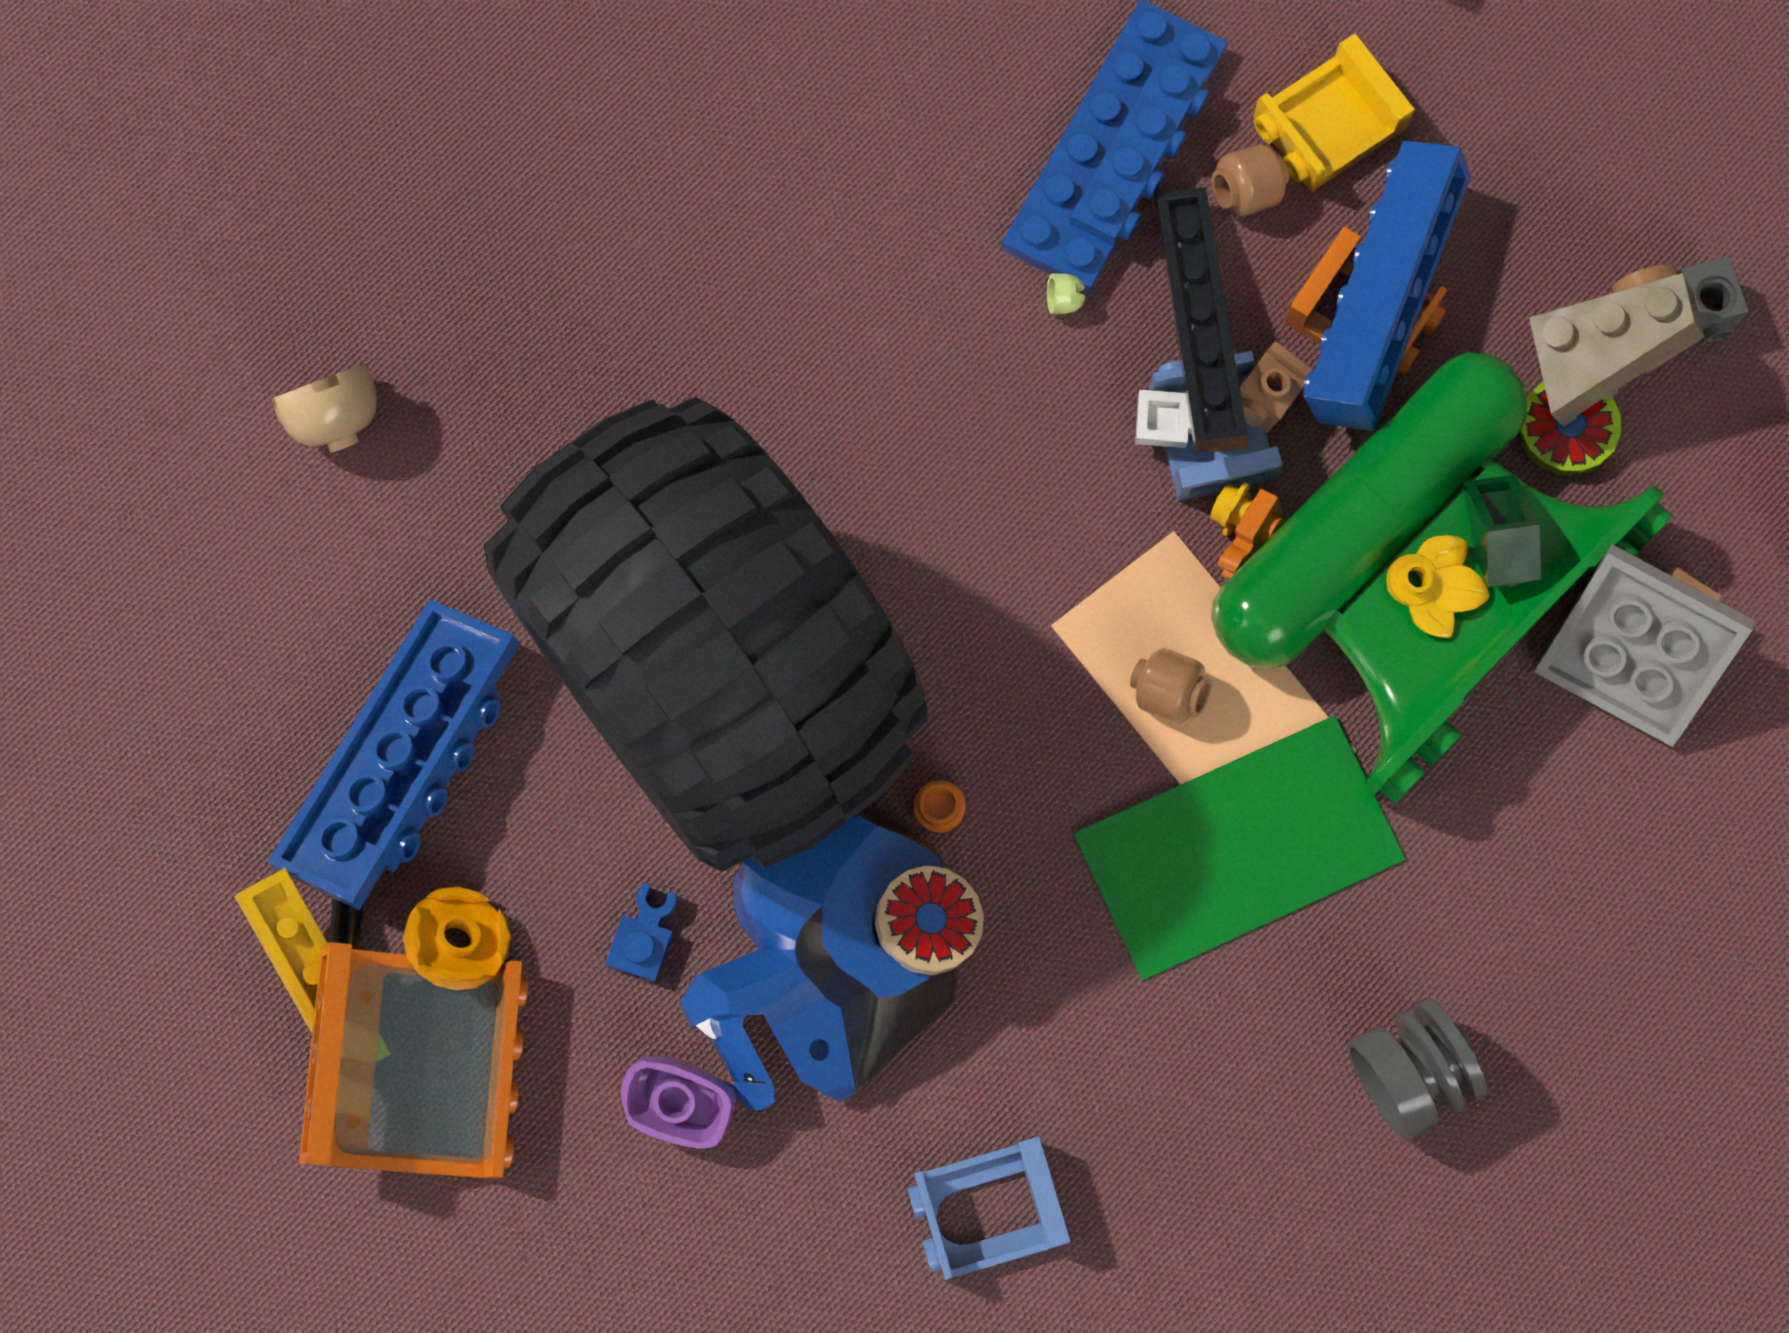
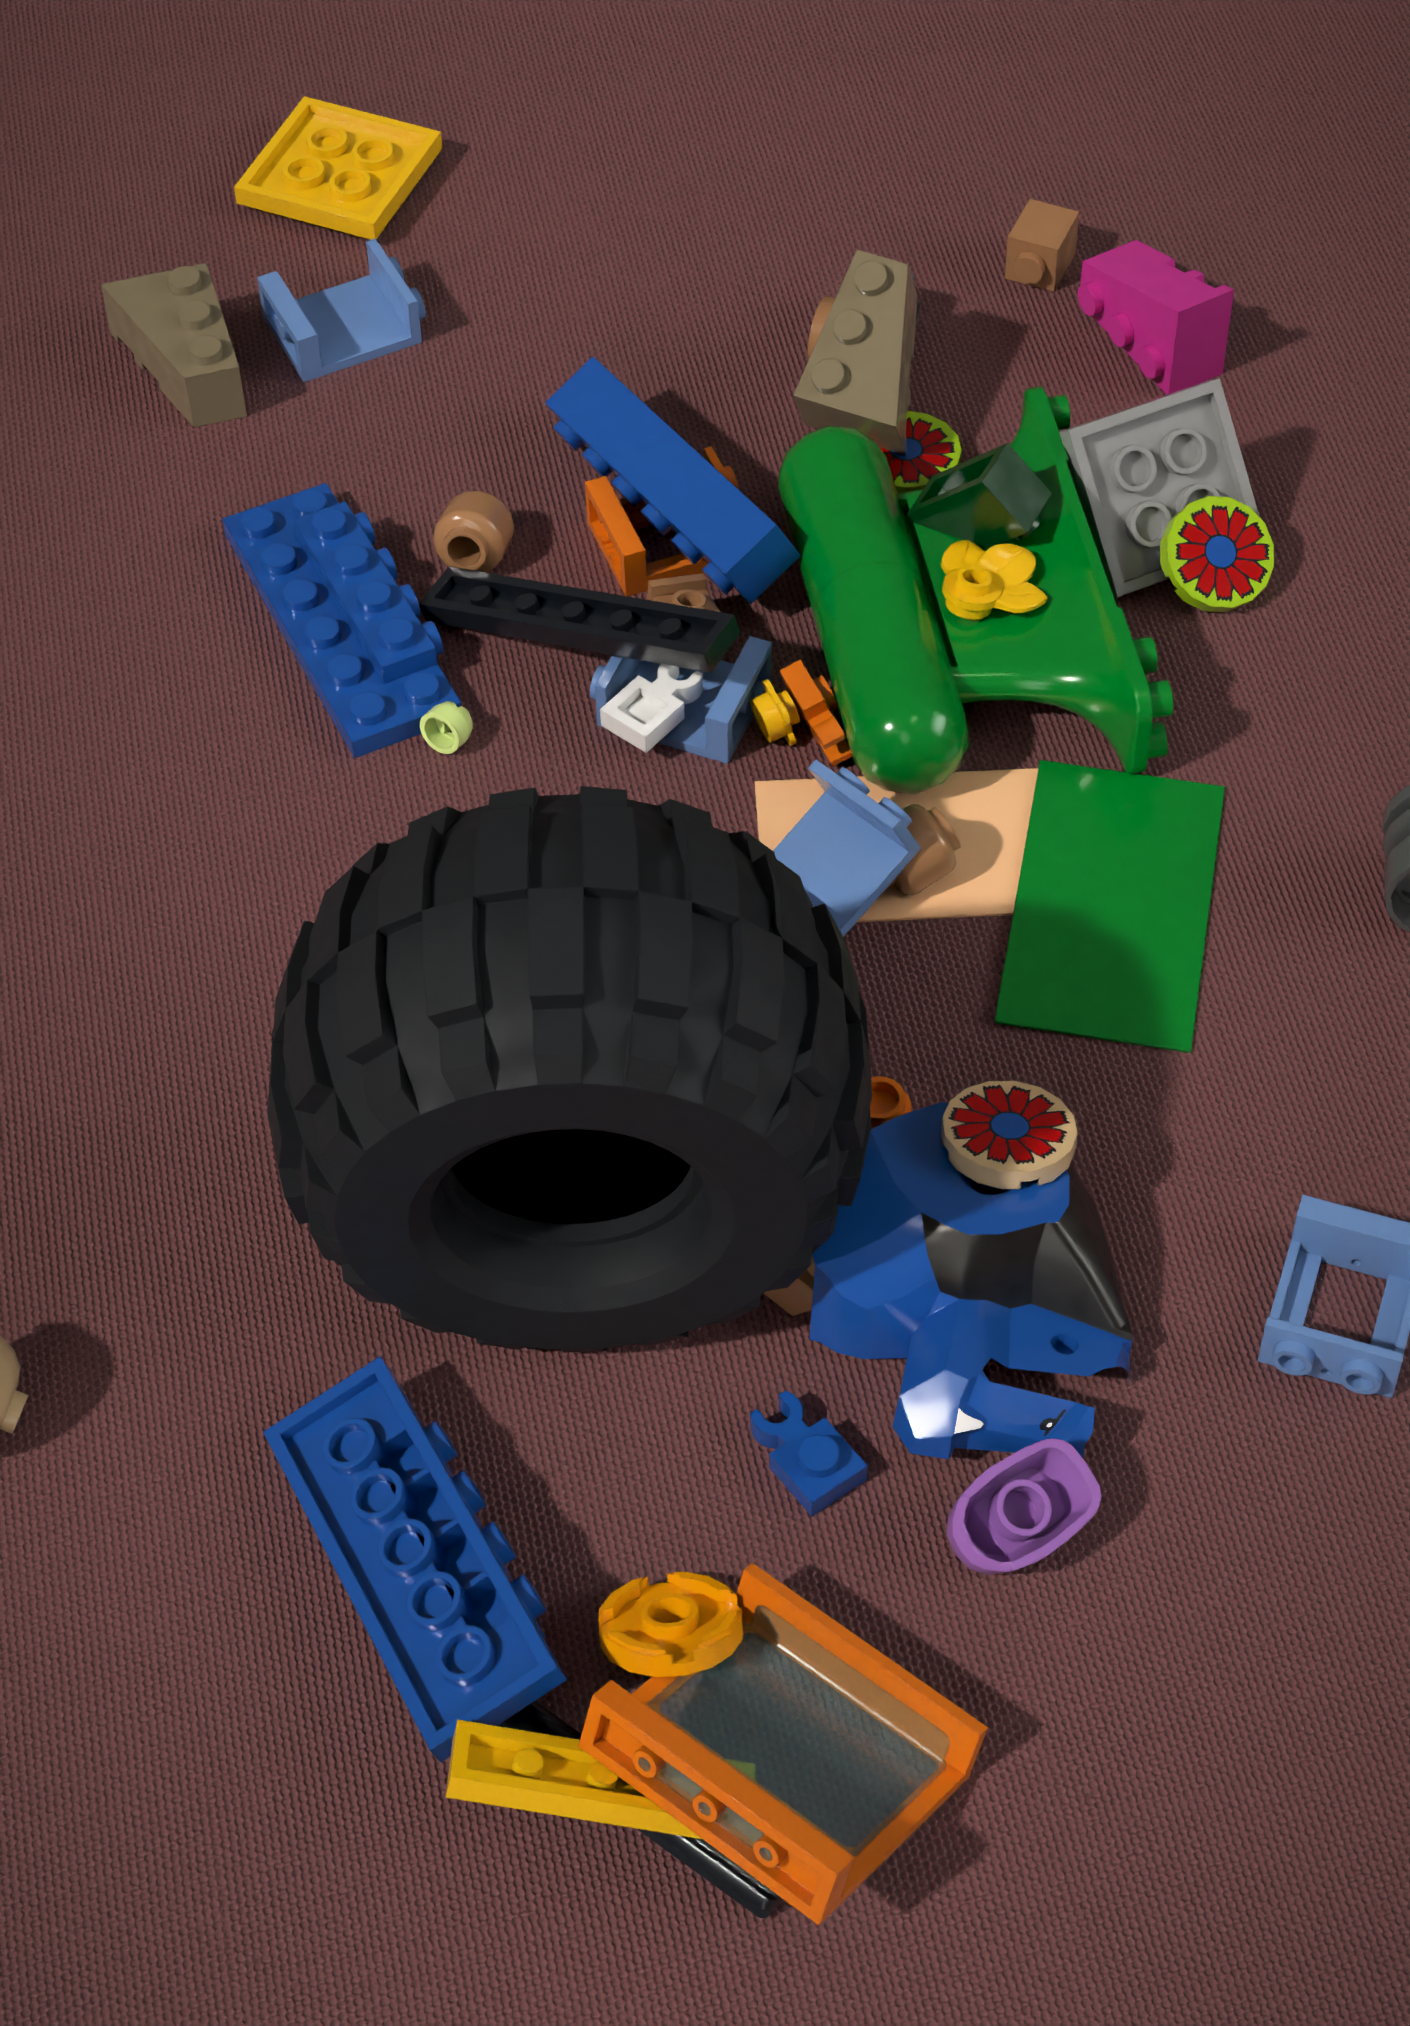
camera: 55 degrees left, 25 degrees down
(1103, 638) = (847, 846): none -> medium blue panel
(1333, 115) = (467, 441): yellow panel -> none
(1618, 722) = (1217, 554): none -> tile

